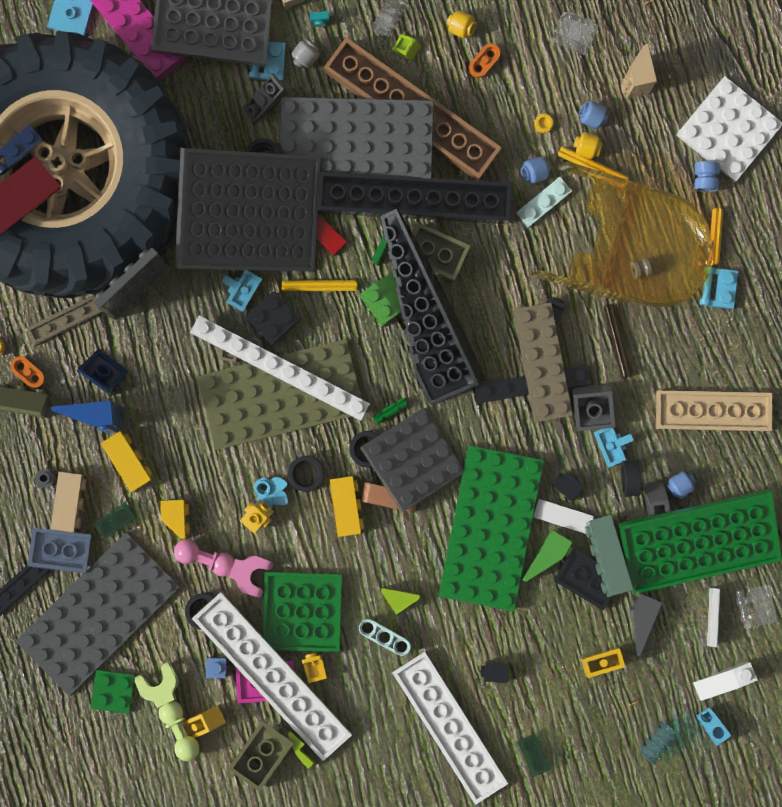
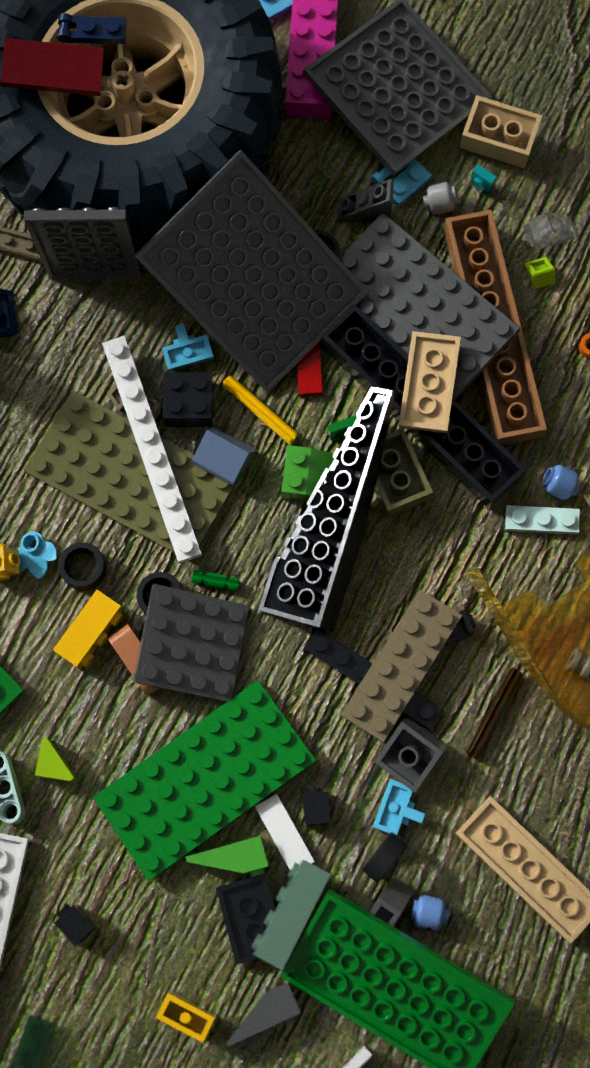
camera: 50 degrees right, 10 degrees down
(326, 333) = (223, 455): none -> sand blue slope
(410, 181) = (429, 382): none -> tan plate

